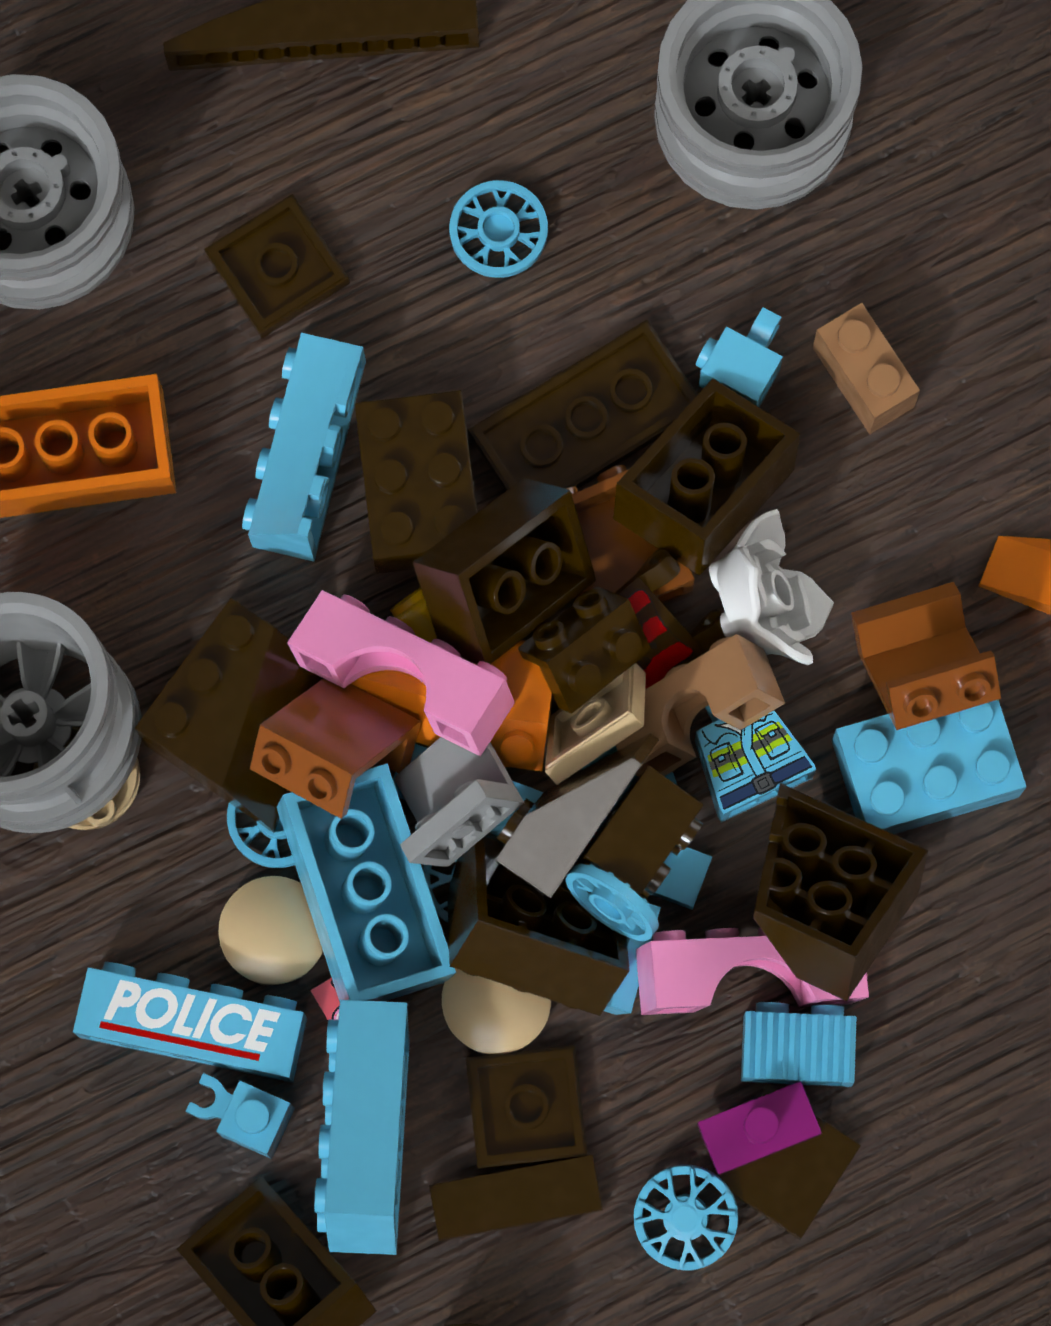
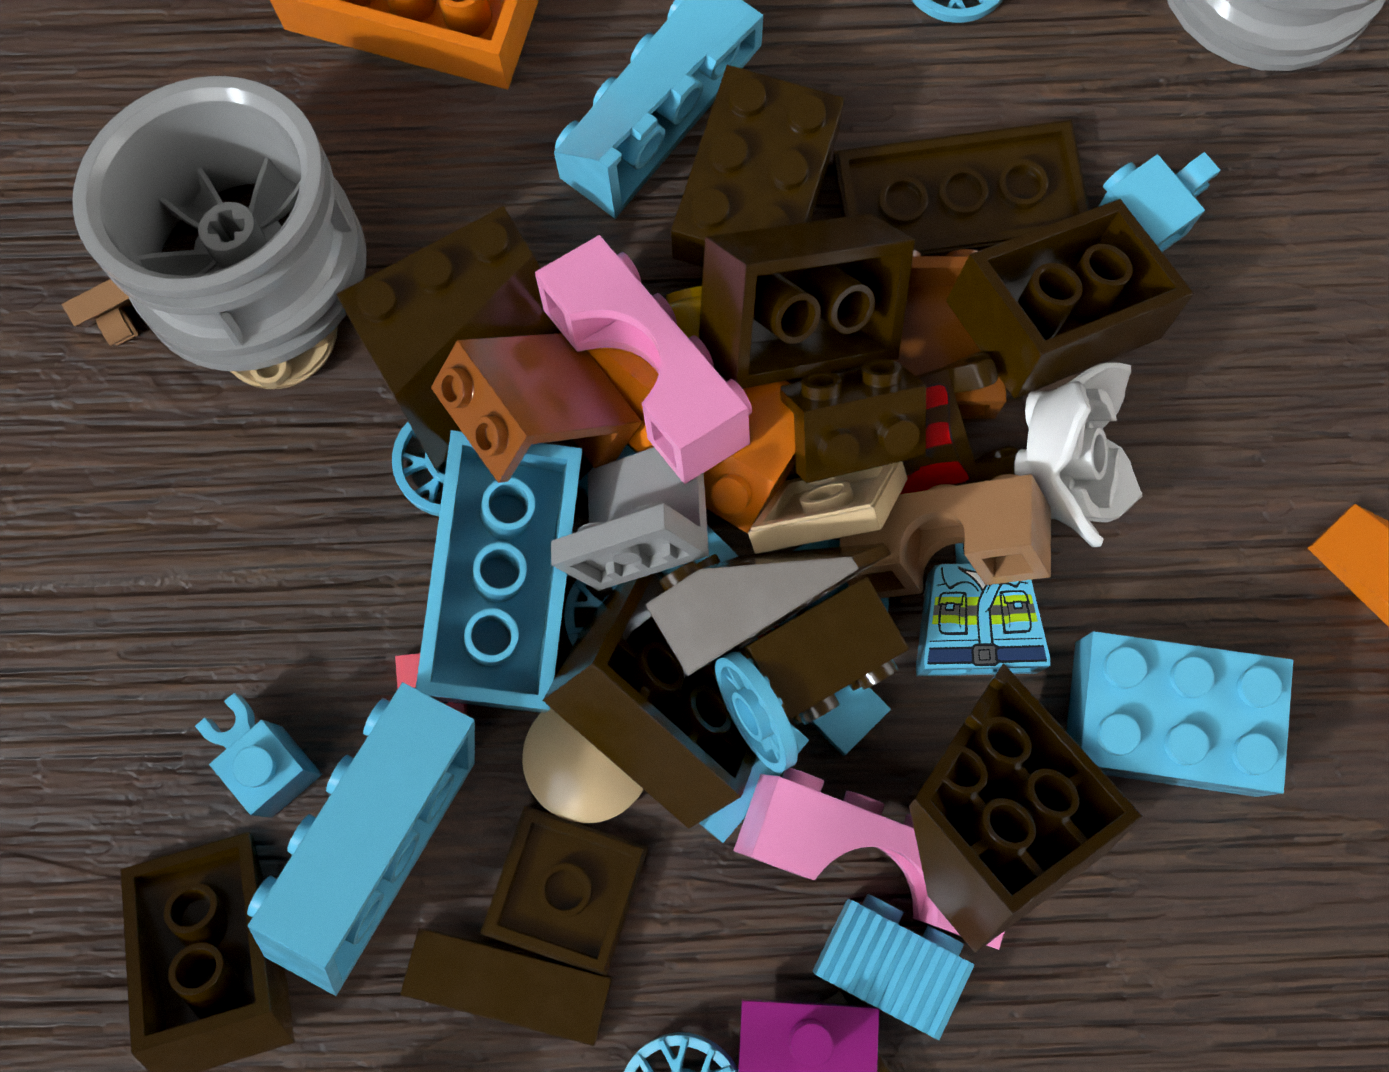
camera: 25 degrees right, 0 degrees up
(191, 1023) = (250, 634): medium azure brick -> none
(269, 931) = (382, 574): tan dish -> none
(865, 368) = (1287, 263): medium nougat brick -> none
(924, 656) = (1223, 598): dark orange panel -> none

